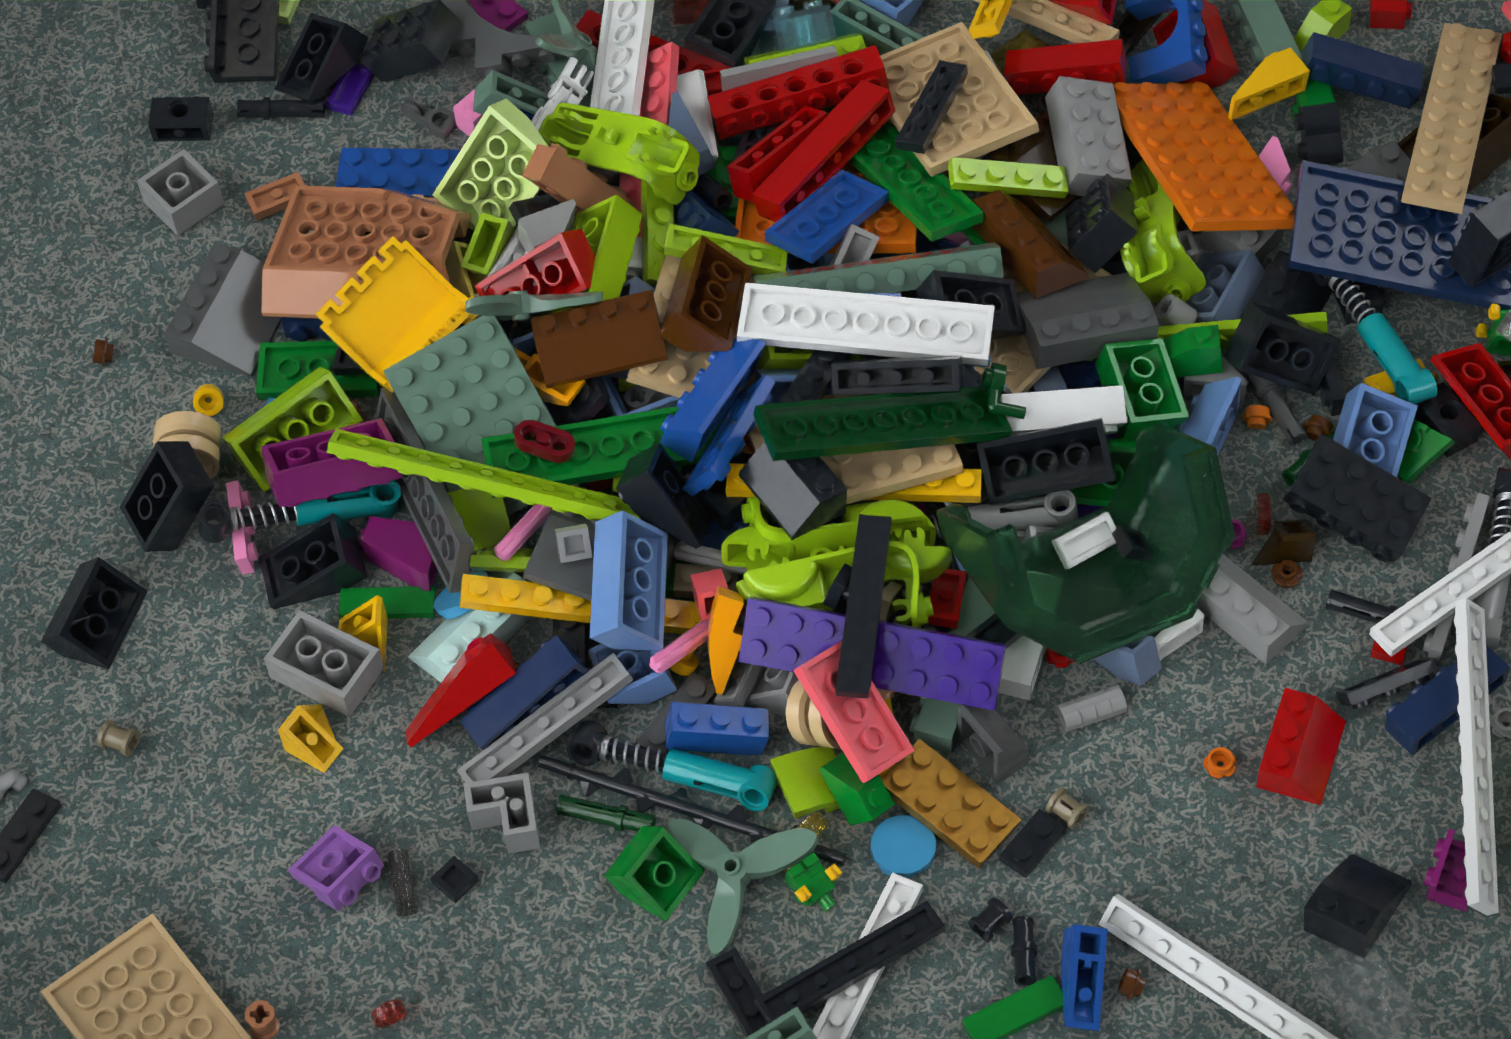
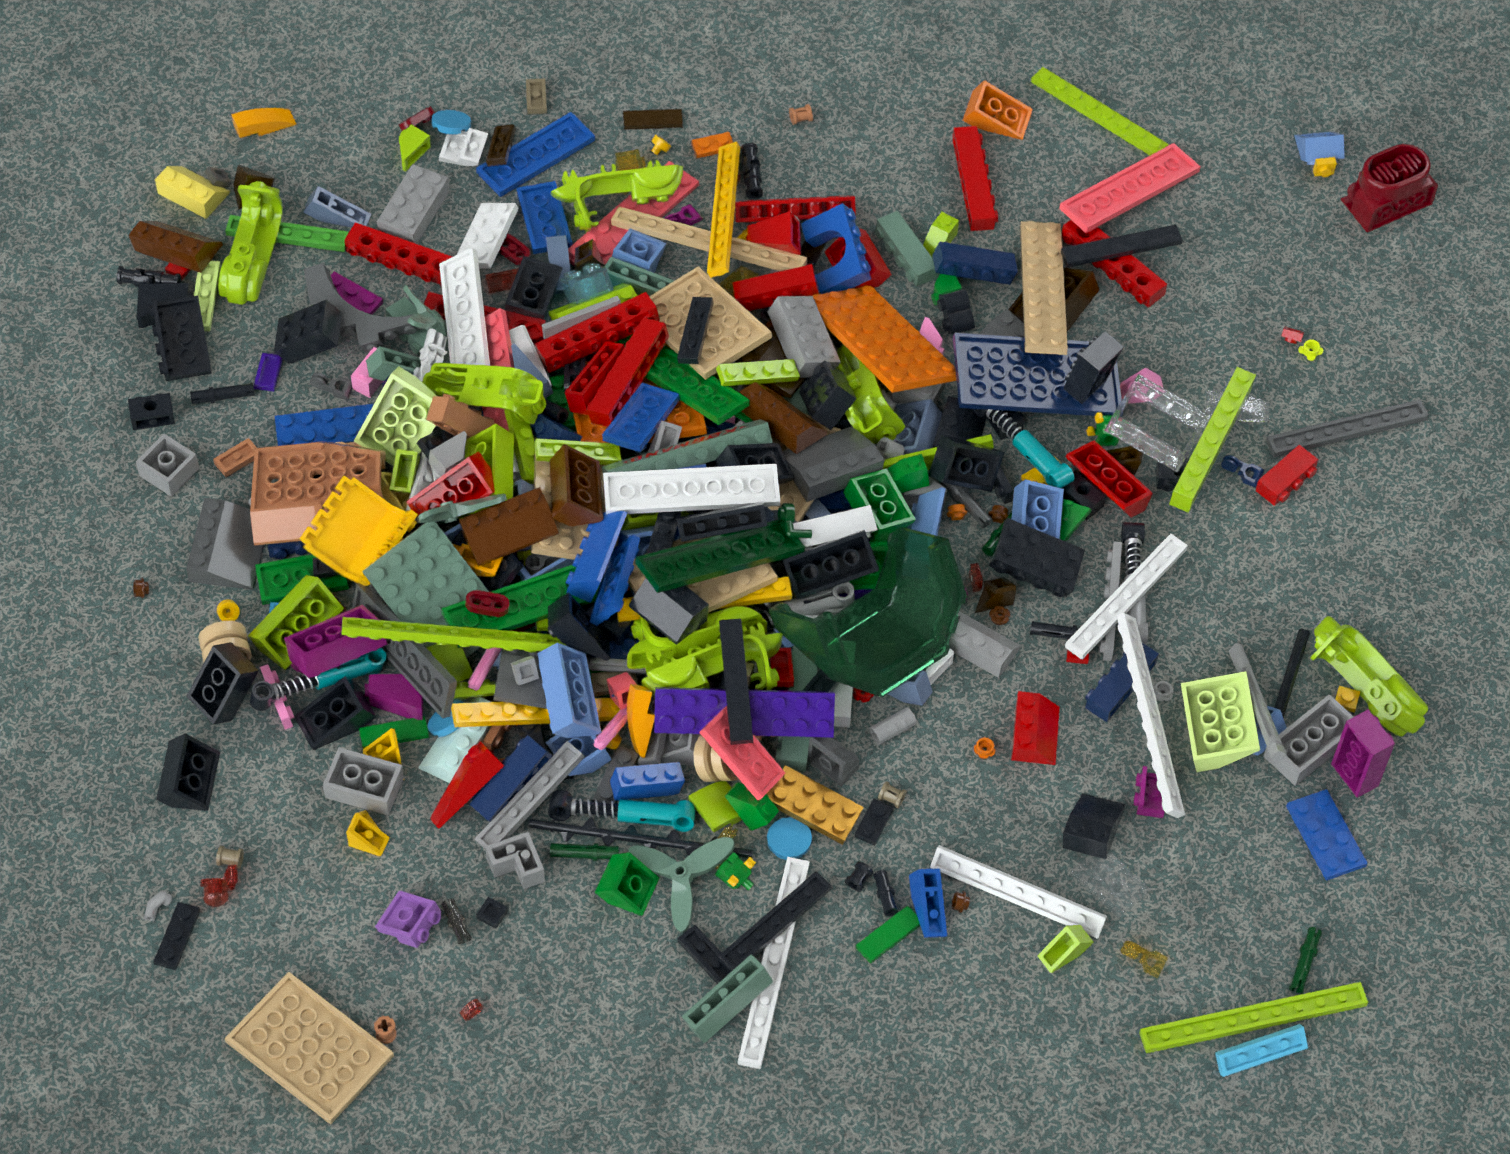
camera: 20 degrees left, 0 degrees up
(88, 780) = (217, 889): none -> clear red piece
(320, 57) = (243, 353): black slope -> none
(521, 631) = (494, 736): none -> nougat plate
(839, 587) = (715, 671): black plate -> none
(1085, 540) = (866, 613): white tile -> none
(1132, 544) = (897, 611): black plate -> none
(1274, 79) = (919, 278): yellow slope -> none
(1387, 683) = (1081, 677): black plate -> none

